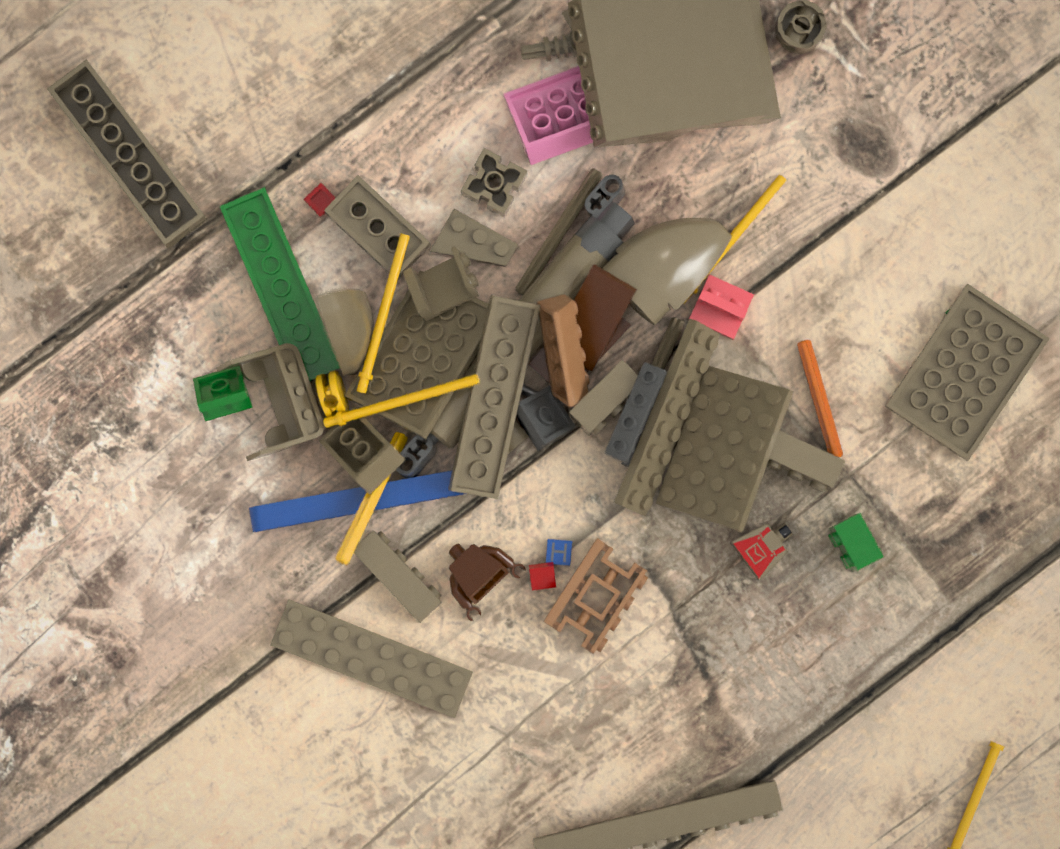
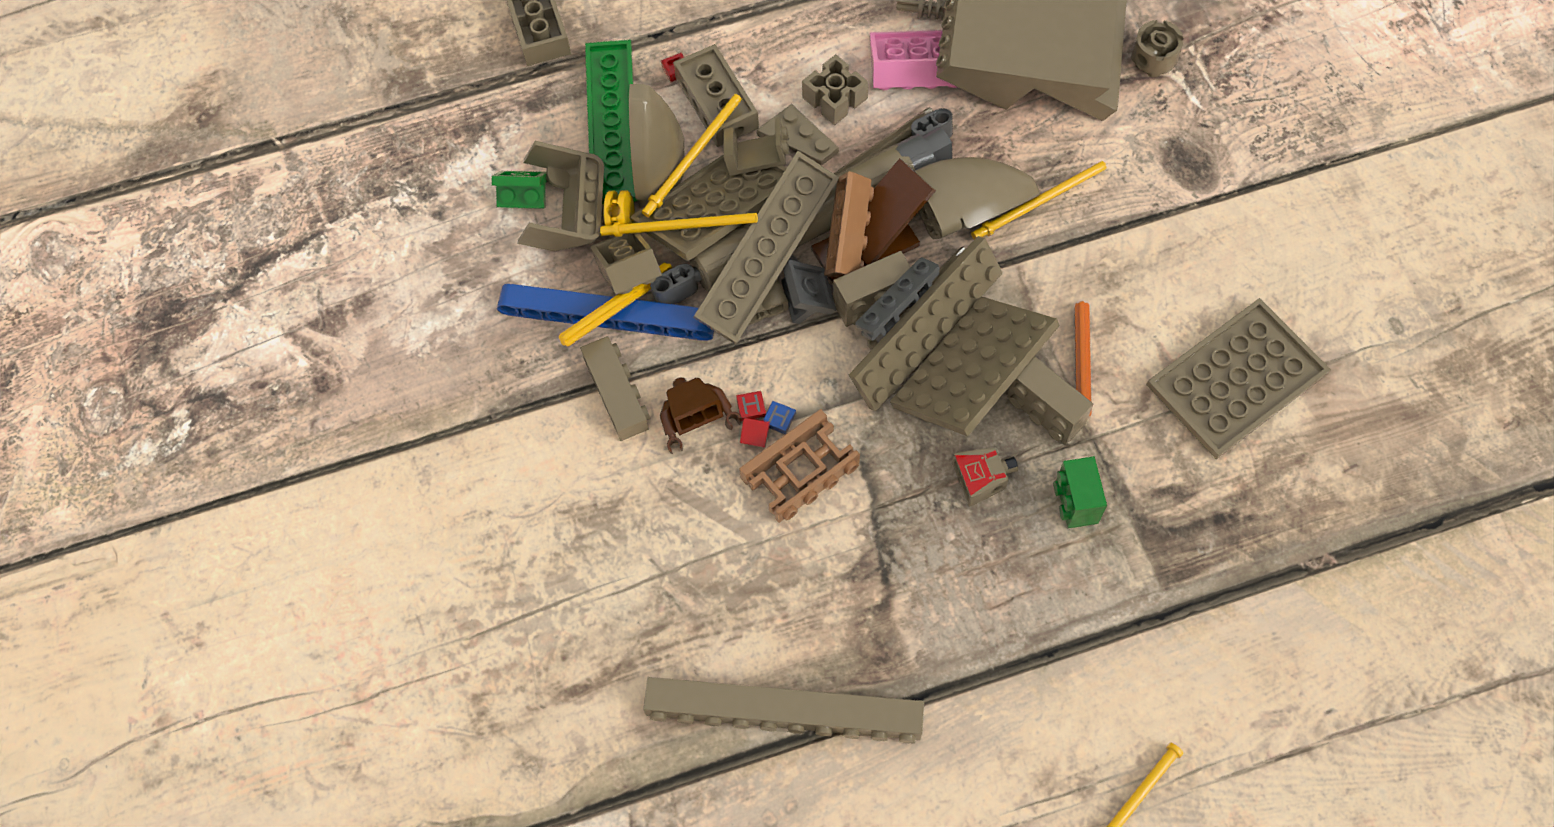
camera: 25 degrees right, 20 degrees down
(371, 658) = (561, 458): dark tan plate -> none
(529, 549) = (751, 405): none -> red tile
(721, 306) = (1014, 251): coral bracket -> none

